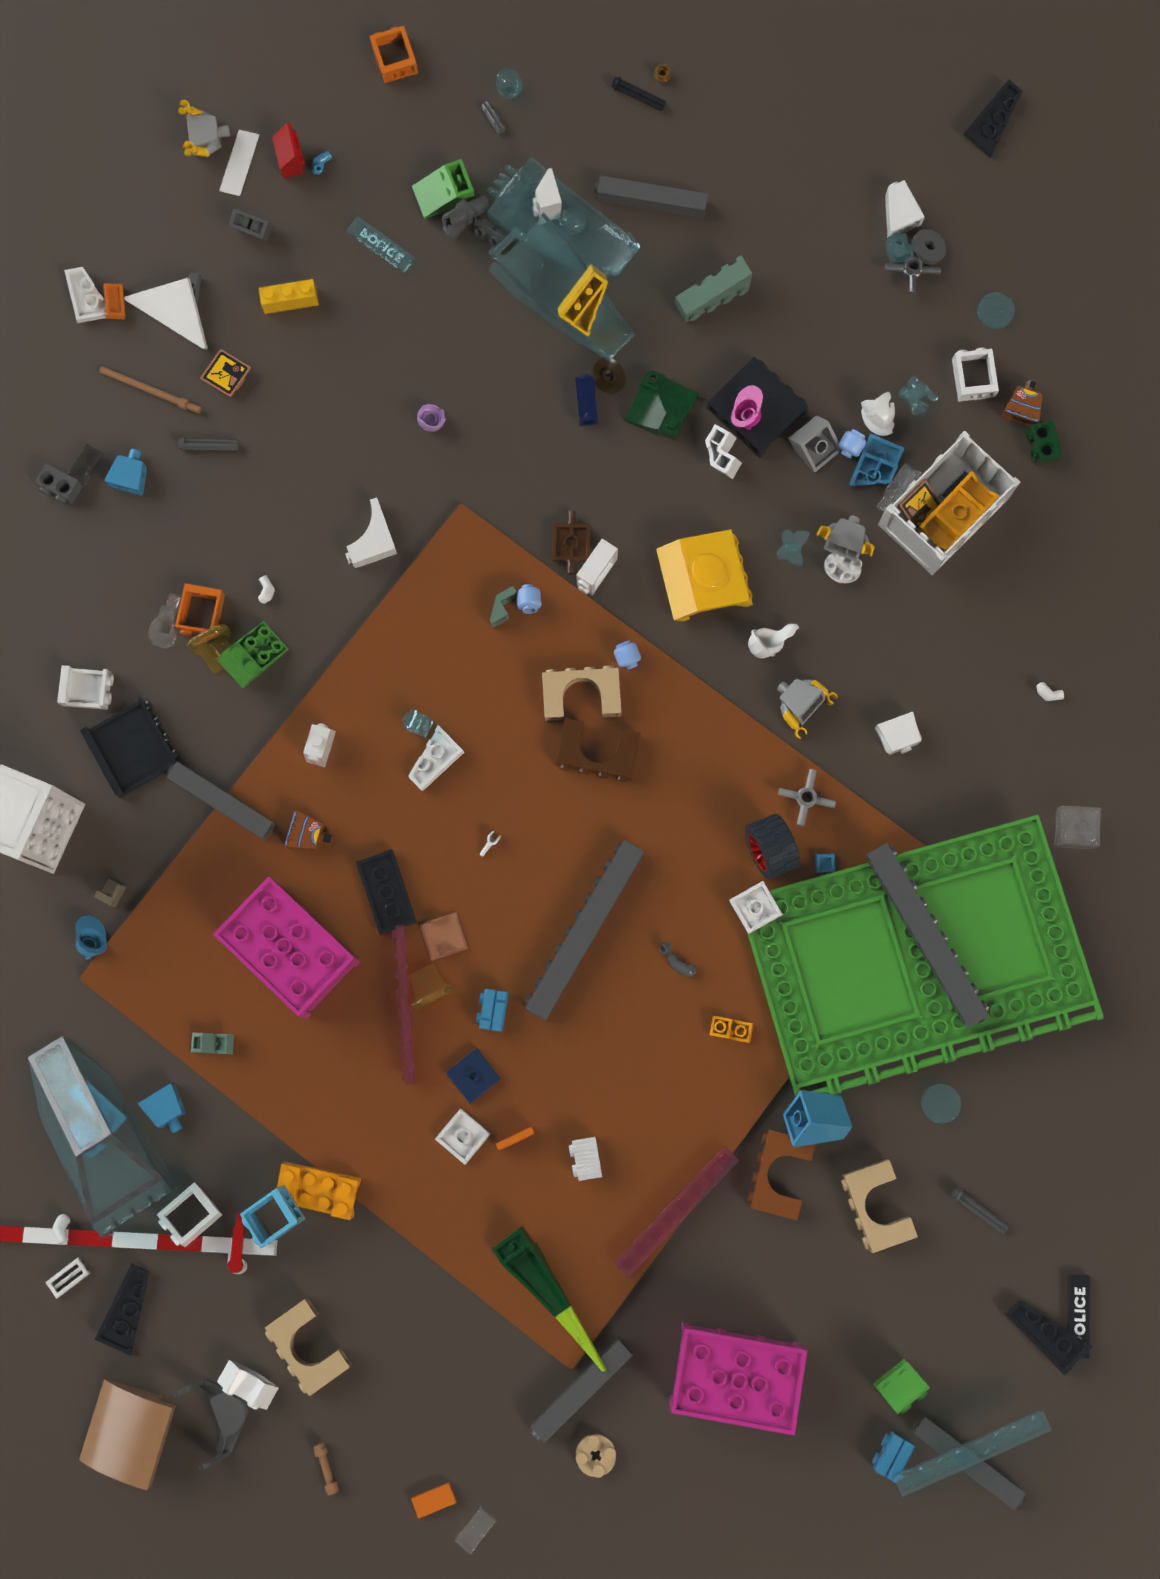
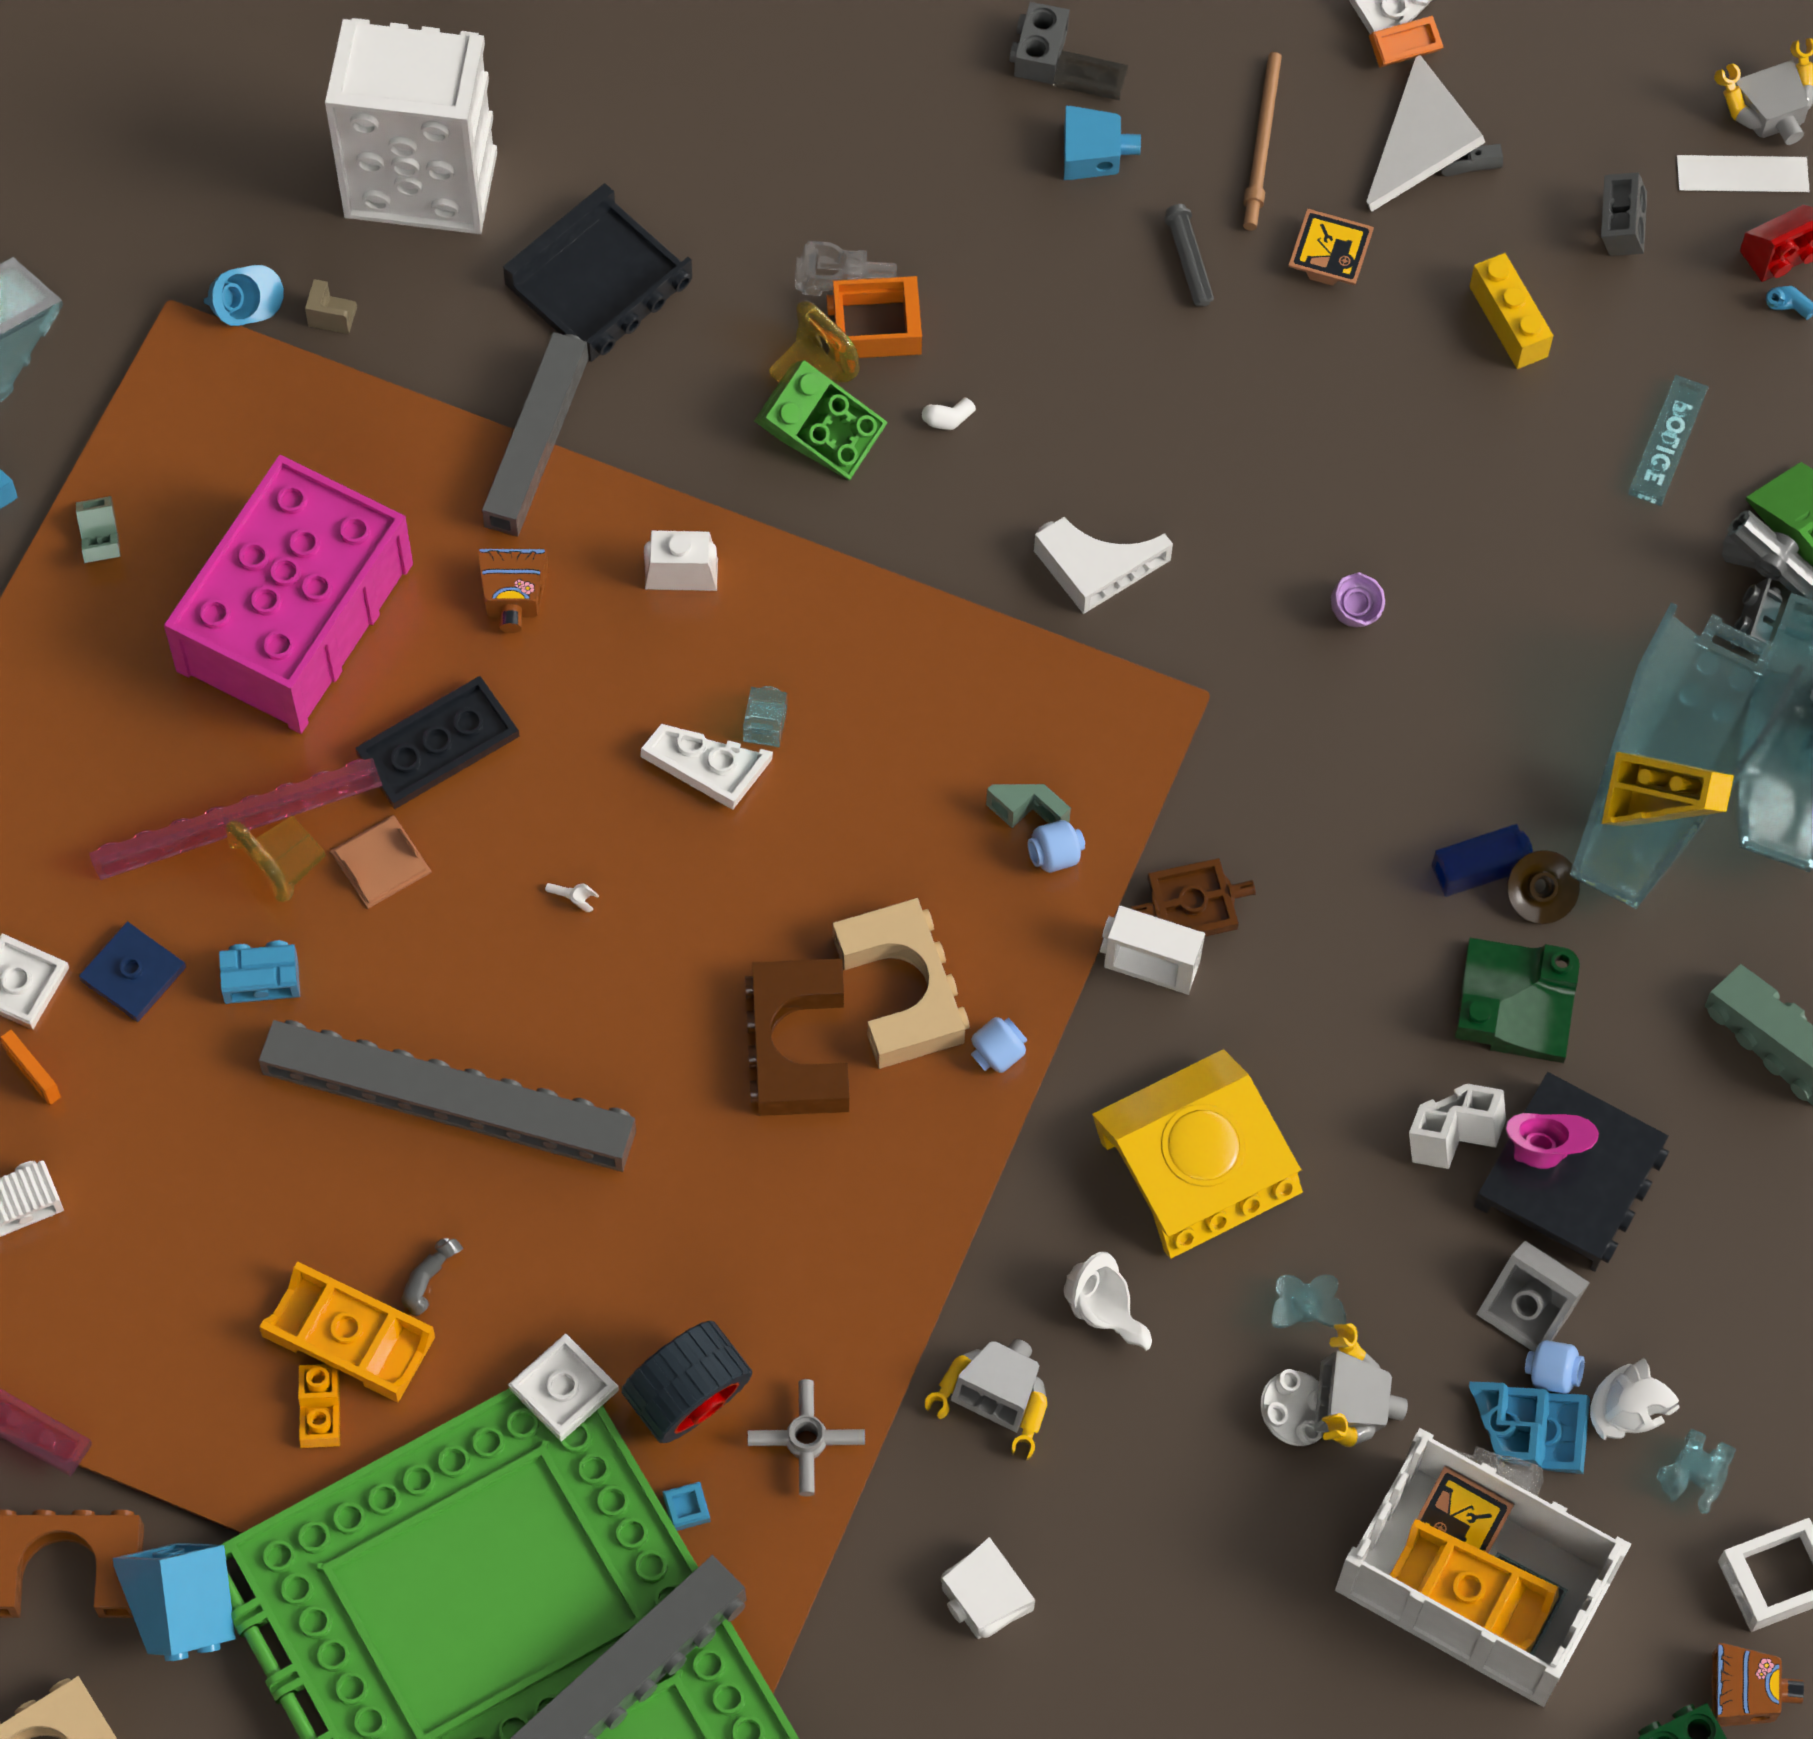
camera: 70 degrees right, 15 degrees down
(85, 688) = (685, 176): white panel -> none
(699, 1007) = (349, 1331): none -> light orange piece

